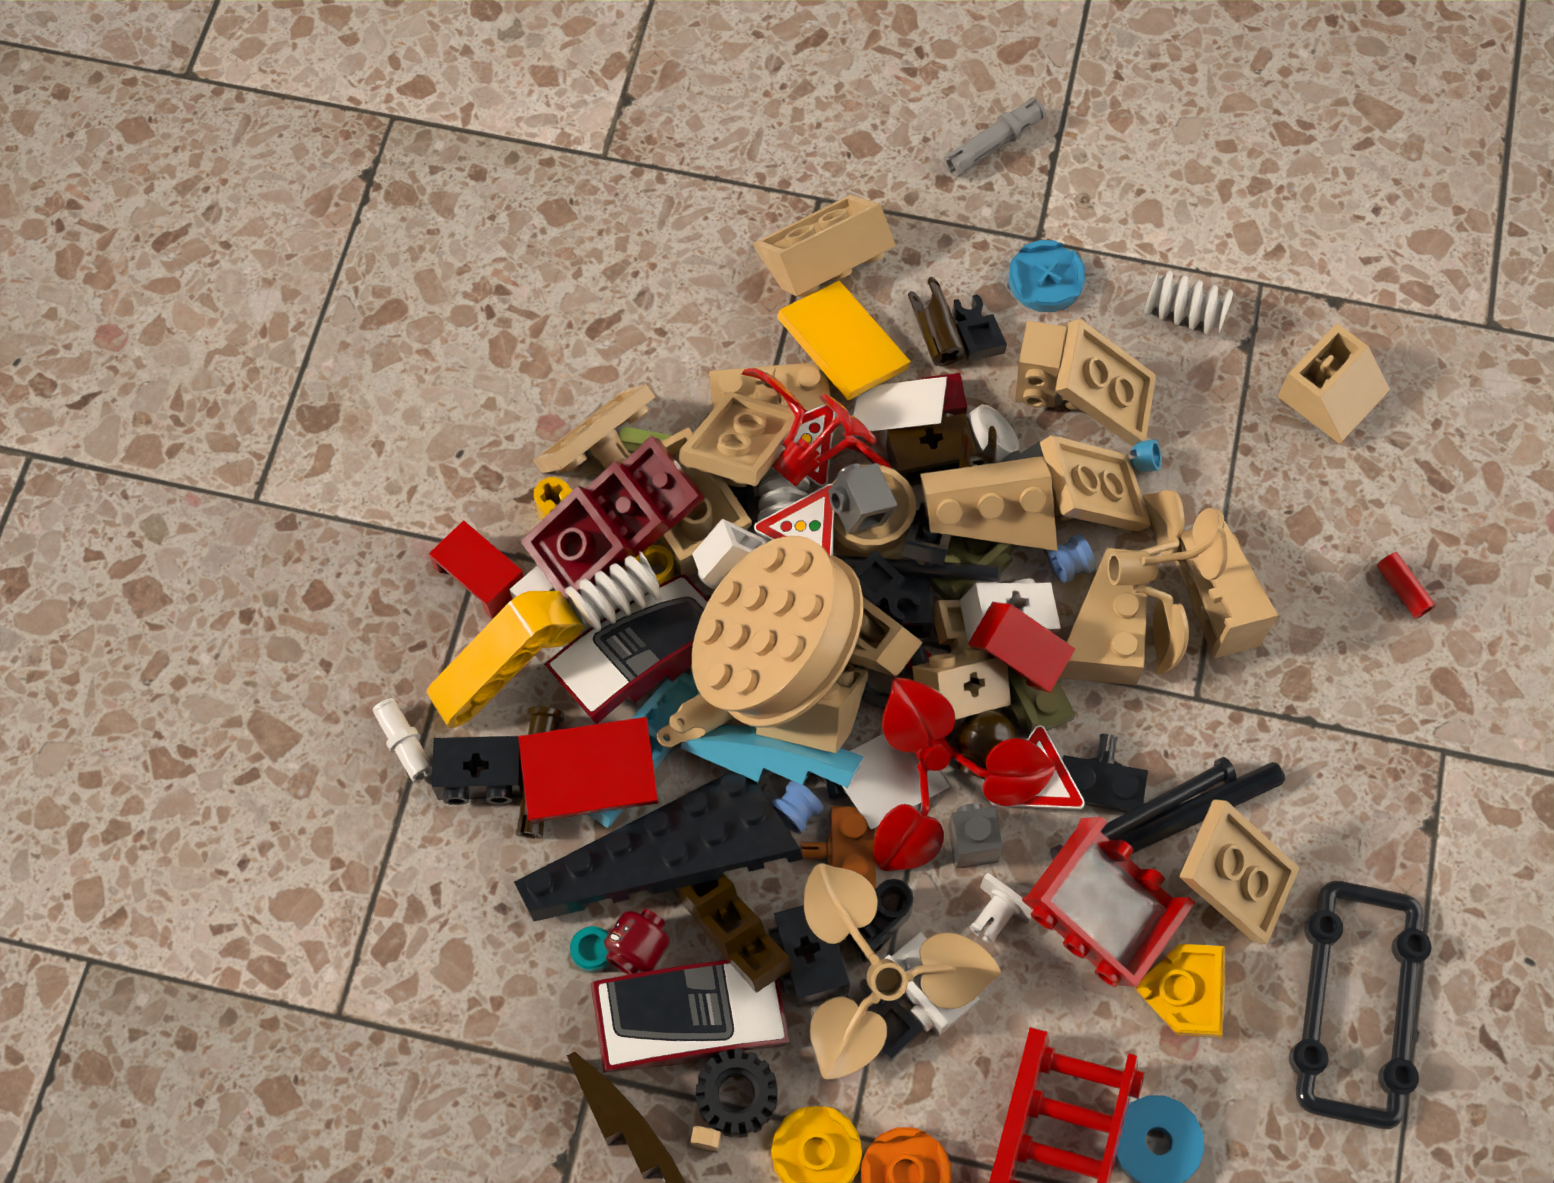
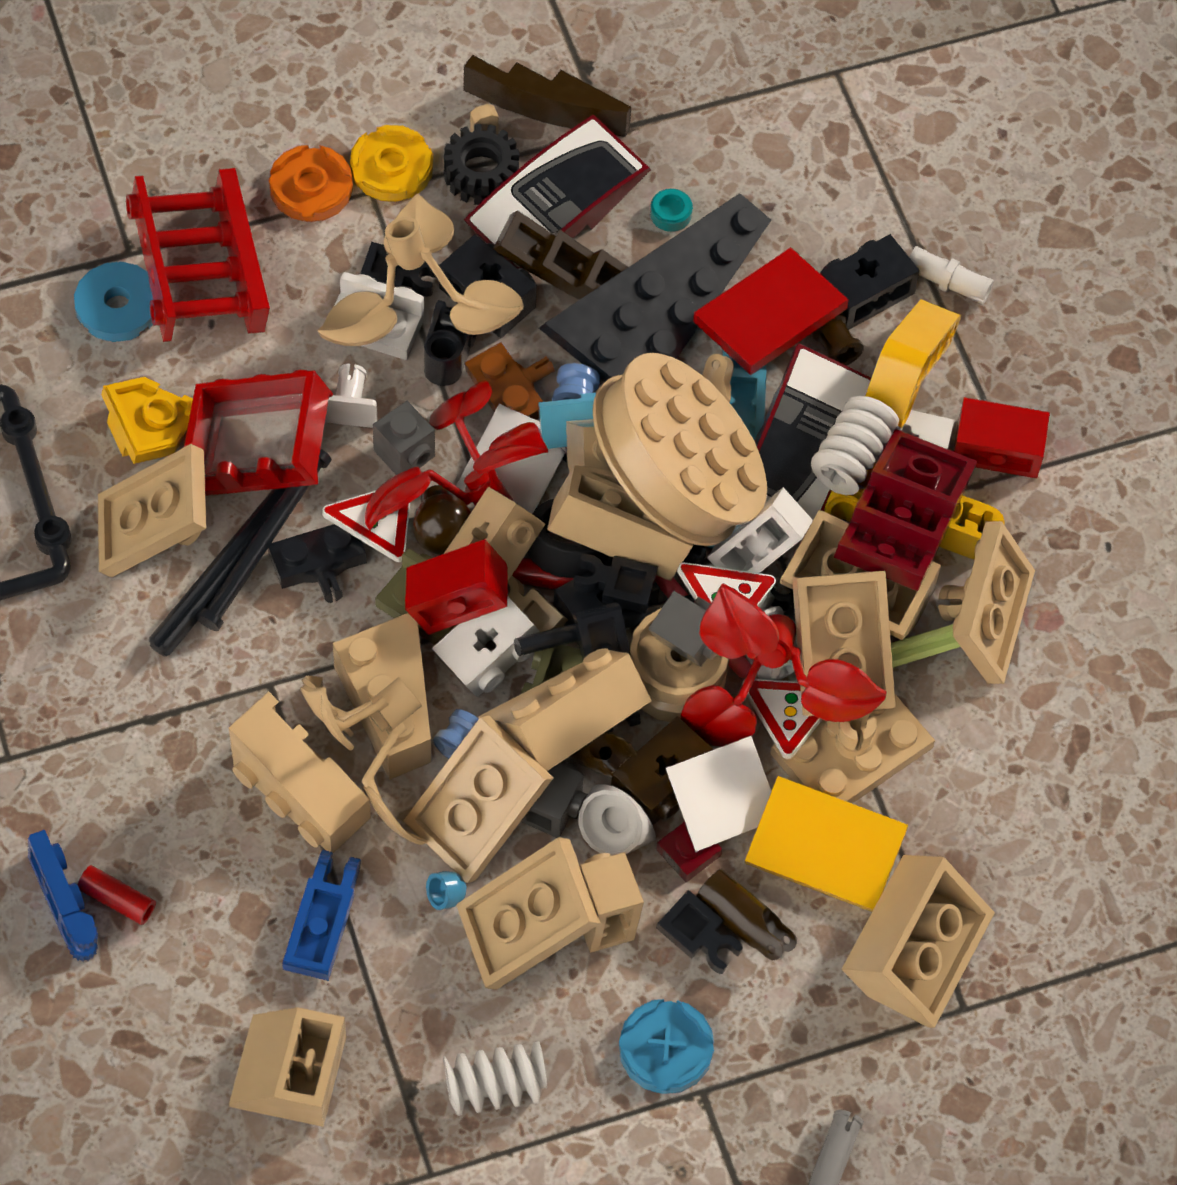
camera: 145 degrees right, 5 degrees down
(636, 941) = (636, 217): dark red head -> none
(1256, 480) = (321, 920): none -> blue hinge
(1453, 597) = (63, 898): none -> blue hinge

